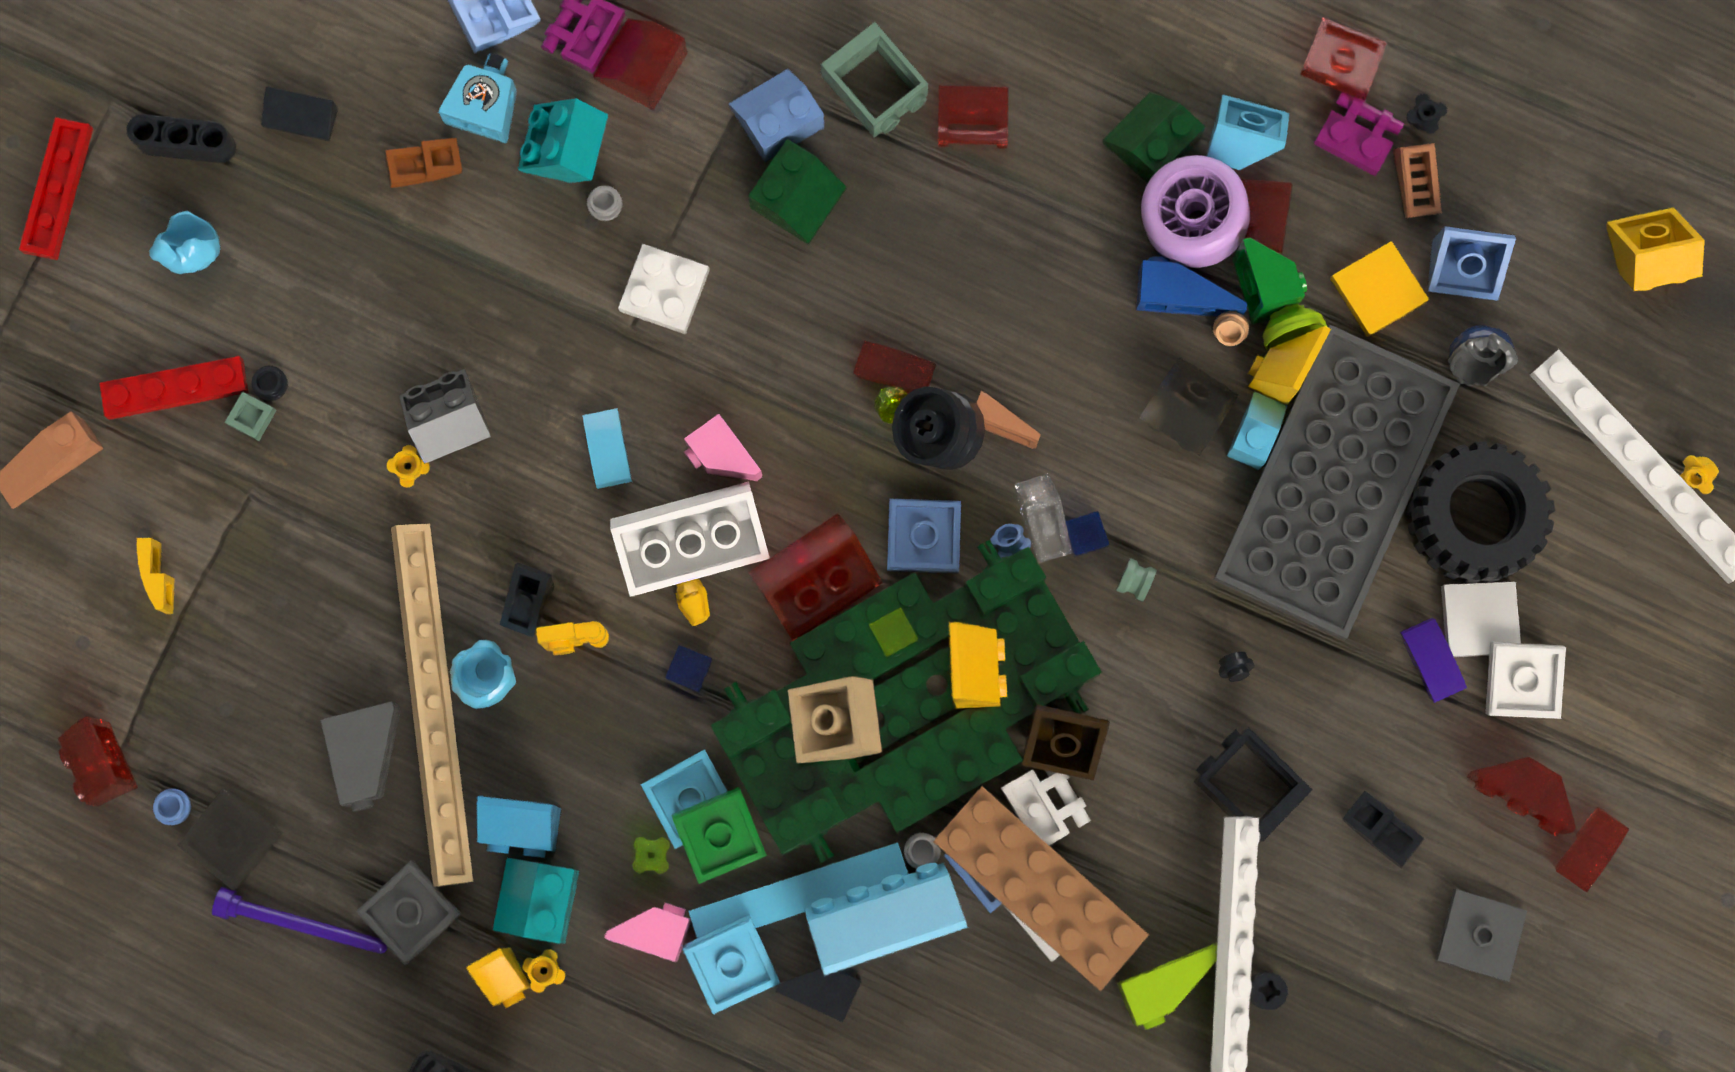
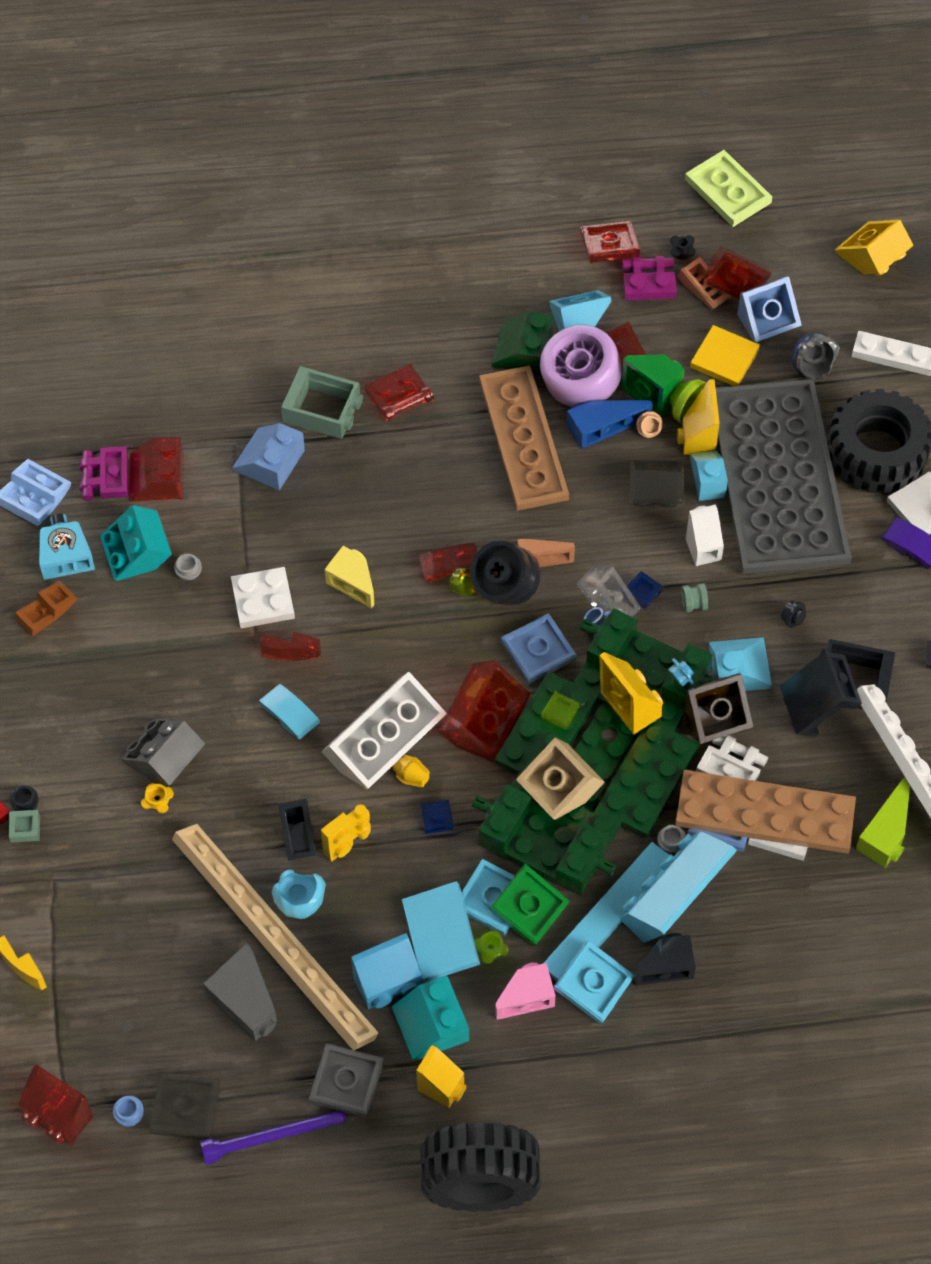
camera: 30 degrees left, 20 degrees down
(534, 966) = (476, 1062): yellow plate -> none
(607, 807) = (440, 931): none -> medium azure tile
(660, 376) = (297, 649): none -> clear red slope
(720, 451) = (370, 670): bright pink slope -> none
(774, 321) = (351, 575): none -> light yellow slope
(796, 192) = (314, 492): dark green slope -> none
(1045, 680) = (681, 672): none -> dark azure plate
(1076, 260) = (523, 438): none -> medium nougat plate
(1136, 688) = (742, 657): none -> medium azure slope
(1191, 791) = (819, 692): none -> black panel
(1196, 512) = (704, 535): none -> white slope
(1461, 192) = (734, 273): none -> clear red slope
(1534, 66) = (728, 188): none -> yellowish green plate

